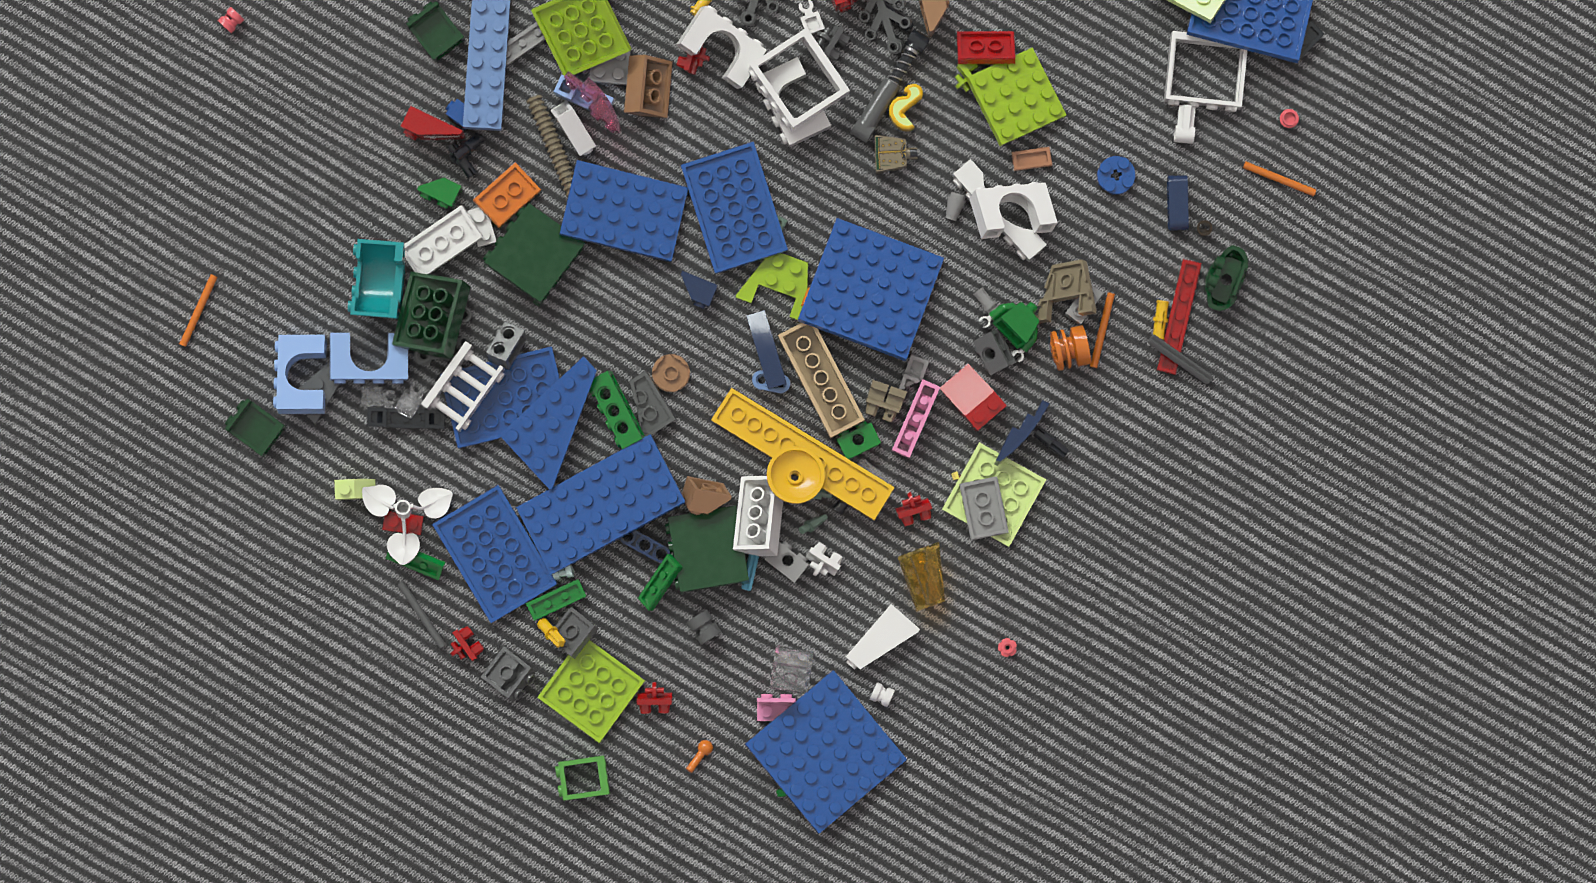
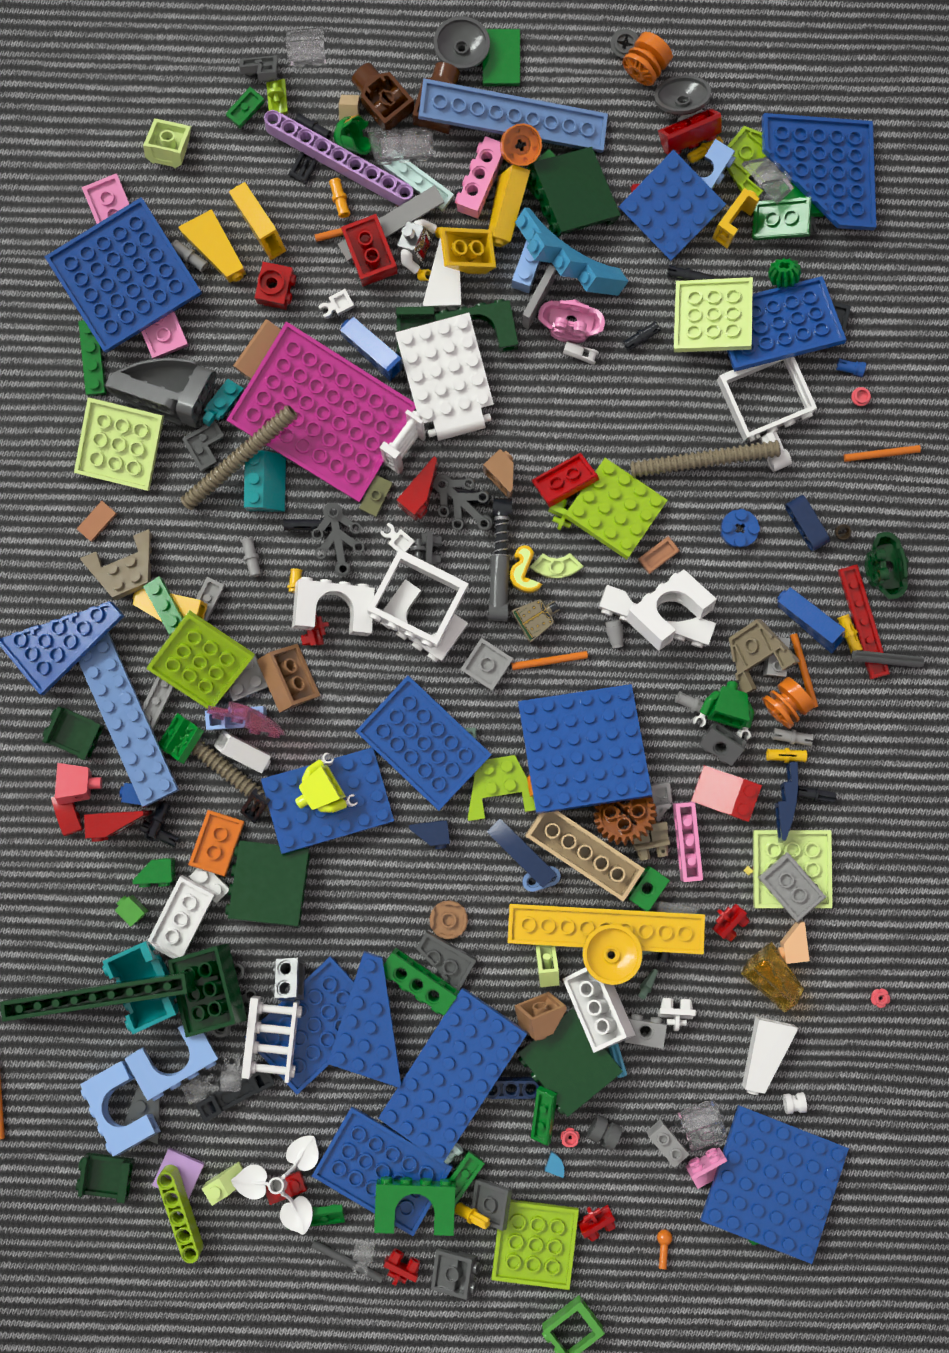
camera: 25 degrees left, 0 degrees up
(309, 484) = (178, 1222): none -> lime beam
(318, 460) = (188, 1167): none -> lavender tile
(336, 266) = (98, 996): none -> dark green brick
(391, 98) = (67, 817): none -> red slope
(402, 211) = (131, 910): none -> bright green brick
(413, 75) = (74, 783): none -> coral torso
(440, 614) = (363, 1253): none -> clear plate
(492, 573) = (439, 1193): none -> green arch
(526, 87) = (180, 738): none -> green slope
(567, 176) = (259, 799): none -> black tile
(625, 197) = (321, 789): none -> neon yellow torso
(645, 633) = (555, 1165): none -> dark azure tile
(666, 618) = (569, 1142): none -> coral plate
(734, 458) = (547, 965): none -> yellowish green slope
(753, 666) = (667, 1143): none -> light grey brick
(827, 170) = (486, 664): none -> light grey plate
(861, 369) = (612, 826): none -> dark orange gear
(884, 198) = (549, 660): none -> orange bar
(935, 120) = (557, 567): none -> yellowish green tile
(958, 560) = (794, 944): none -> light nougat slope
(1033, 387) = (799, 755): none -> yellow pin
(1058, 381) = (792, 737): none -> light grey pin
(1117, 96) = (706, 458): none -> dark tan piece
(1132, 288) = (811, 619): none -> blue slope
(1294, 87) = (856, 368): none -> blue pin

